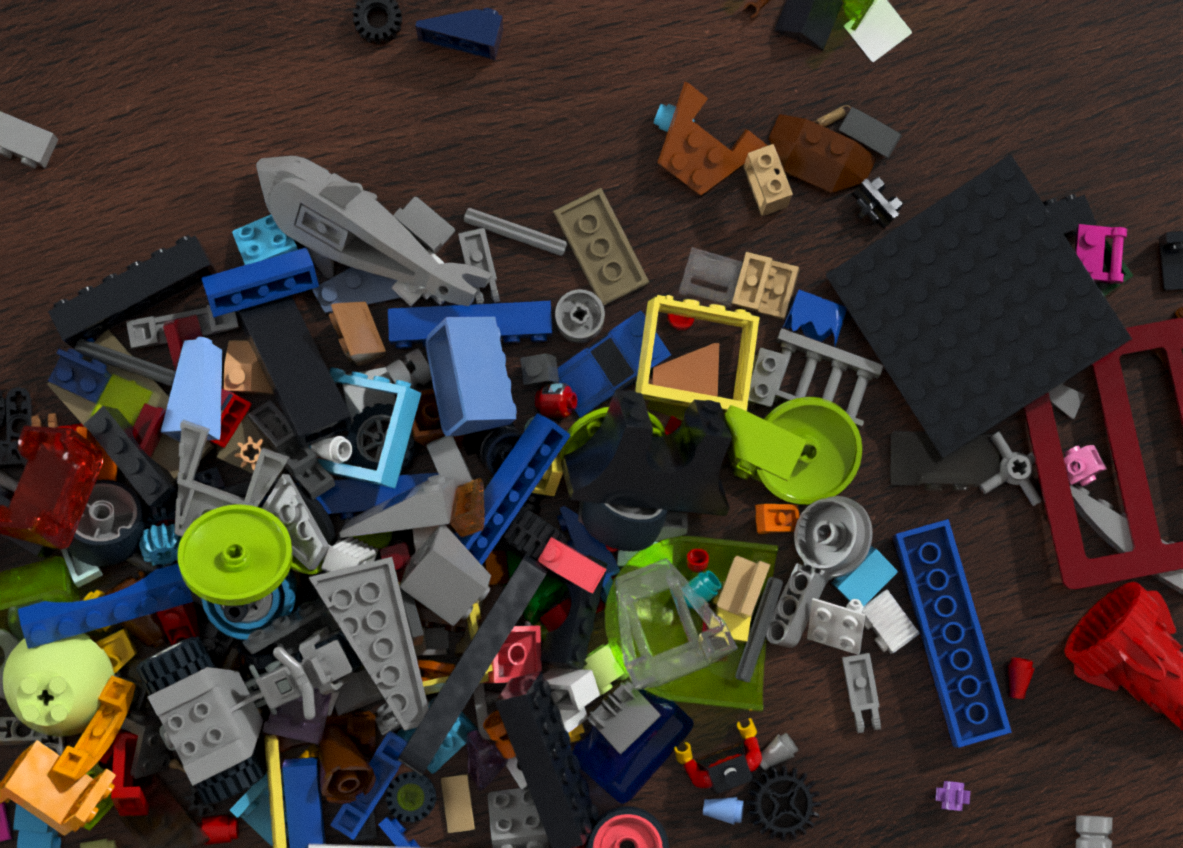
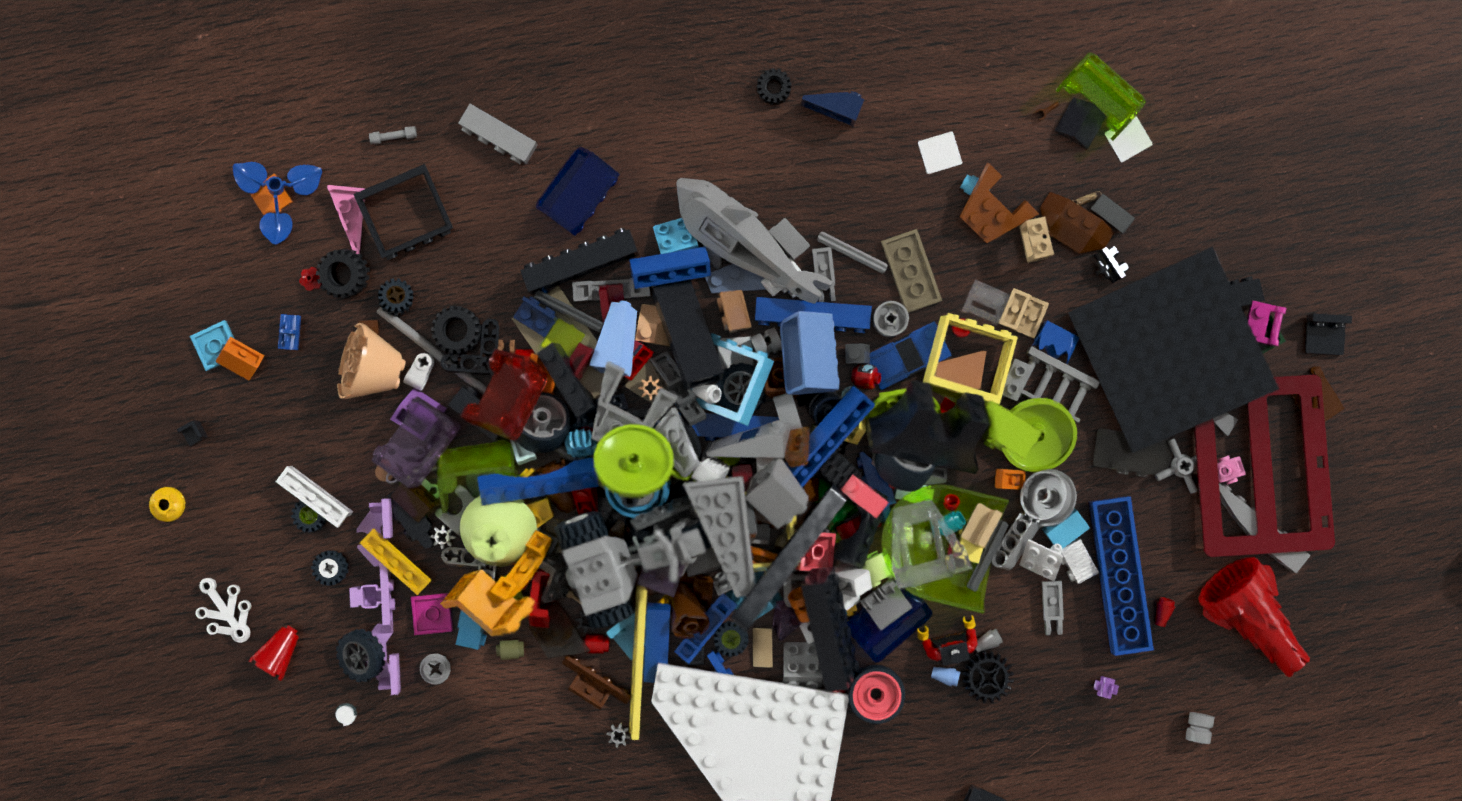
camera: 10 degrees right, 5 degrees up
(120, 193) = (577, 190): none -> clear blue windscreen
(620, 80) = (940, 152): none -> white sticker

